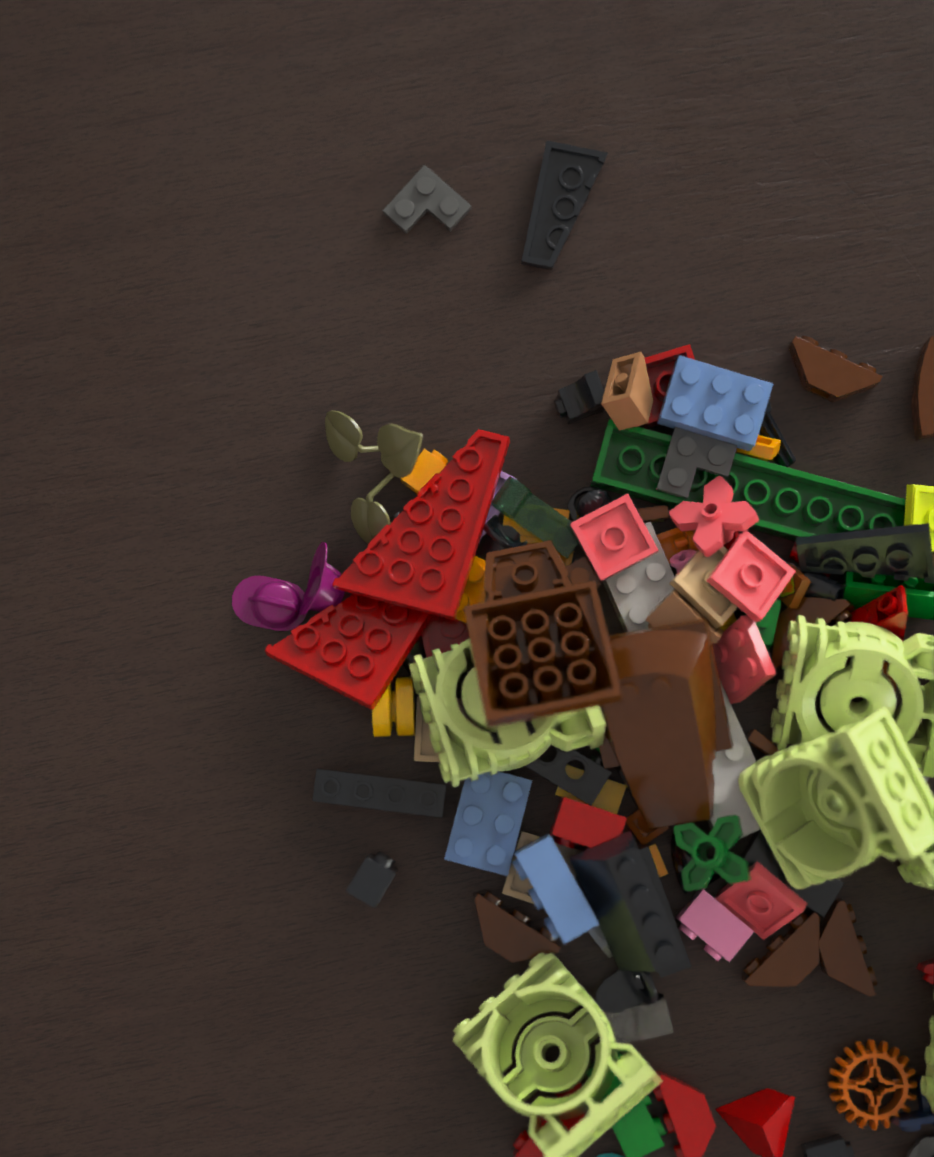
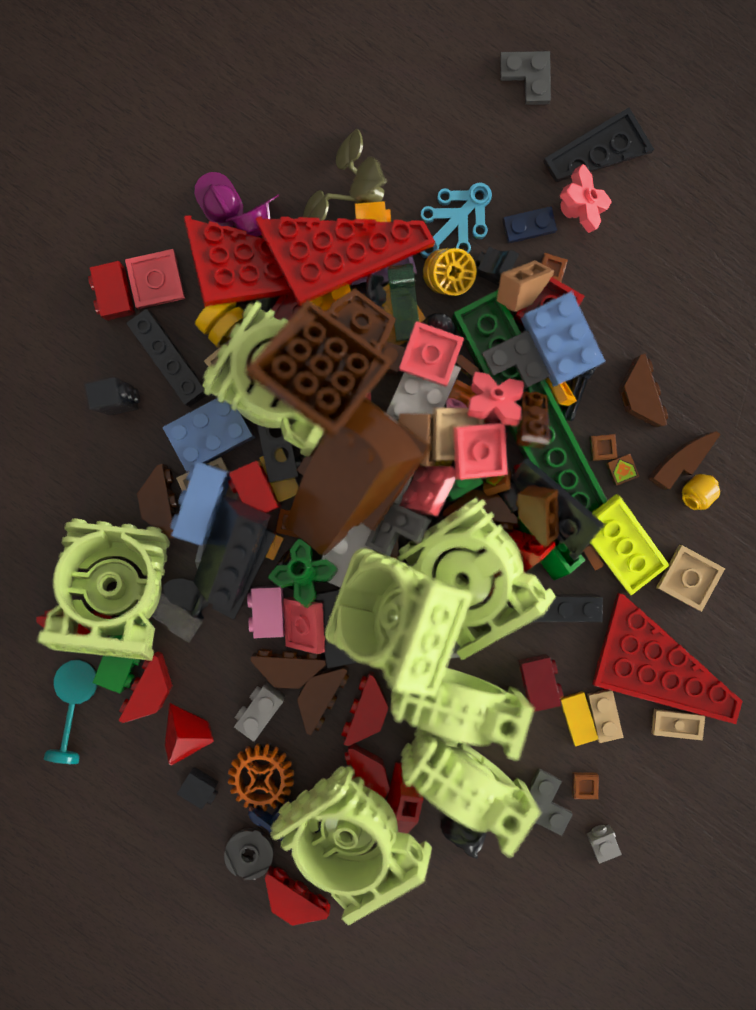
camera: 50 degrees right, 5 degrees up
(263, 787) = (111, 291): none -> red brick
(290, 735) = (155, 279): none -> coral plate
(500, 389) = (459, 216): none -> medium azure plant
(547, 448) = (449, 271): none -> yellow wheel
(569, 331) = (529, 224): none -> dark blue plate
(596, 260) = (583, 200): none -> coral plant
(630, 343) = (555, 263): none -> dark orange tile
(744, 718) = (395, 522): none -> dark grey plate
(772, 503) = (534, 421): none -> reddish brown slope
(805, 1024) = (260, 711): none -> light grey brick
(848, 455) = (603, 447): none -> dark orange tile
(860, 573) = (539, 512): none -> reddish brown slope
(886, 456) = (622, 469): none -> tile
(901, 918) = (367, 712): none -> red slope

